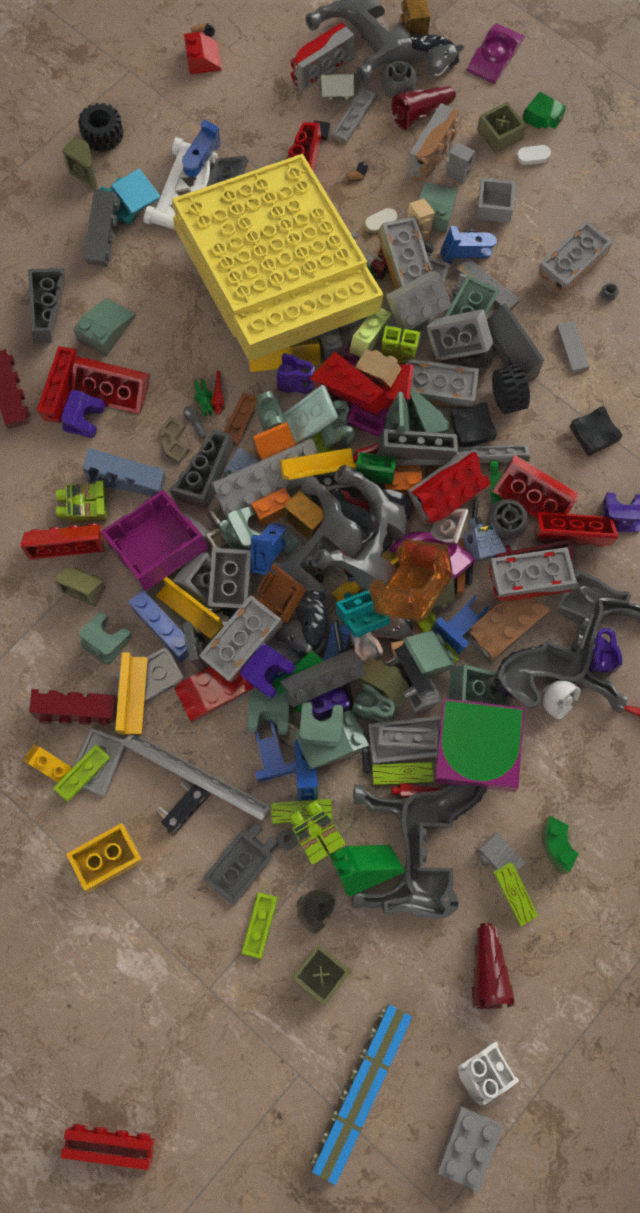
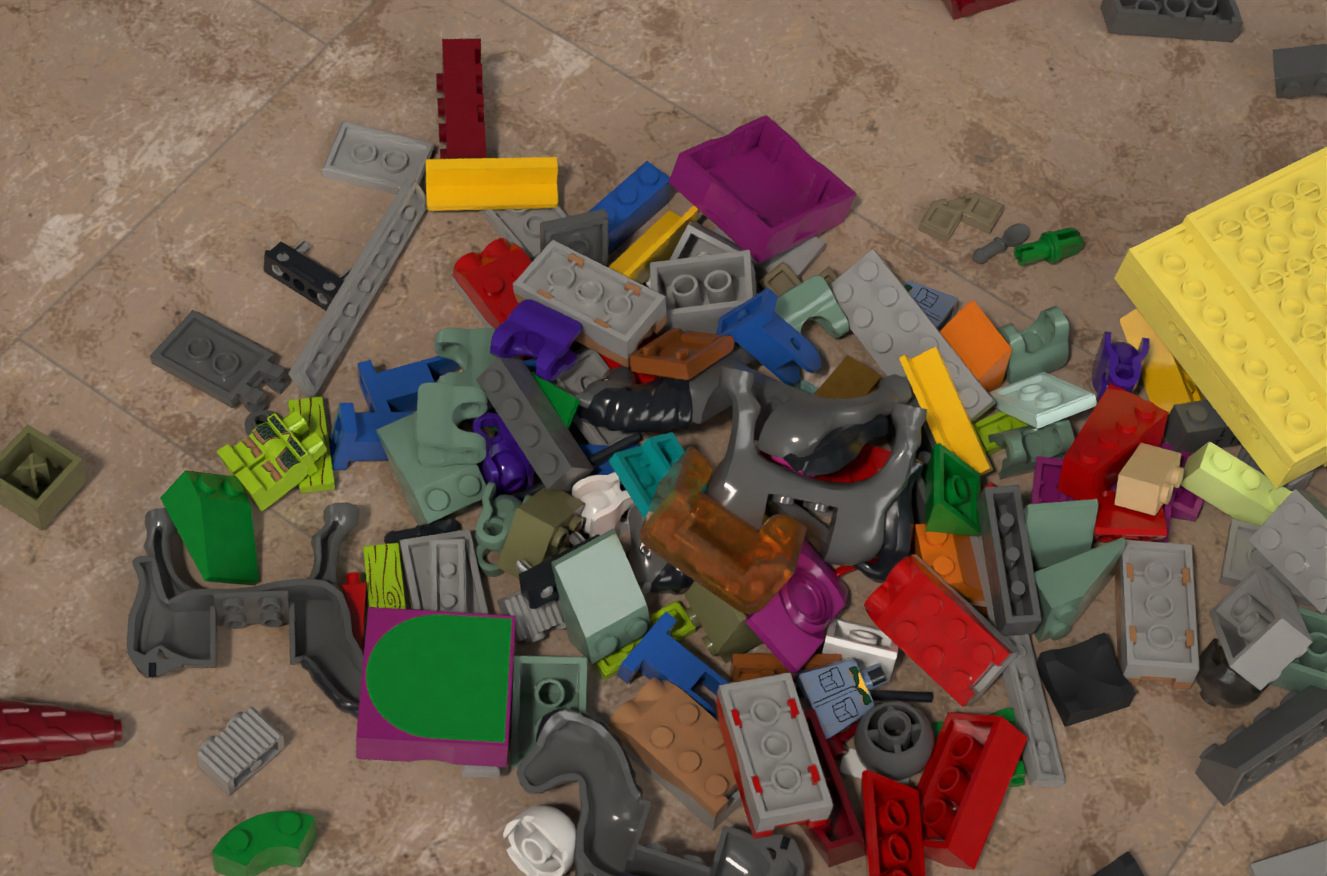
camera: 80 degrees right, 15 degrees down
(46, 763) = (368, 92): yellow bracket -> none
(57, 385) = (1025, 41): red brick -> none
(63, 541) = (743, 67): red slope -> none
(76, 408) = (980, 69): dark purple piece -> none
(80, 585) = (670, 102): olive slope -> none
(81, 773) = (356, 135): lime tile -> none
(83, 502) = (820, 96): lime hips -> none
(100, 644) = (579, 133): sand green piece -> none
(103, 325) = (1156, 96): sand green slope -> none
(104, 857) = (221, 173): yellow brick -> none
(112, 384) = (1043, 113): red slope -> none
(123, 473) = (879, 141): sand blue wedge -> none
(208, 466) = (912, 253): dark grey wedge -> none
(217, 400) = (1053, 272): red piece -> none
(241, 417) = (1013, 306): dark orange tile -> none
(259, 925) = (118, 397): lime tile -> none
(271, 507) = (851, 341): orange brick -> none
(314, 909) = (140, 465): clear smoke cylinder -> none
(403, 350) = (1213, 527): lime hips -> none
(511, 389) = (1169, 730): black tyre -> none
(515, 894) = (172, 769): lime tile -> none

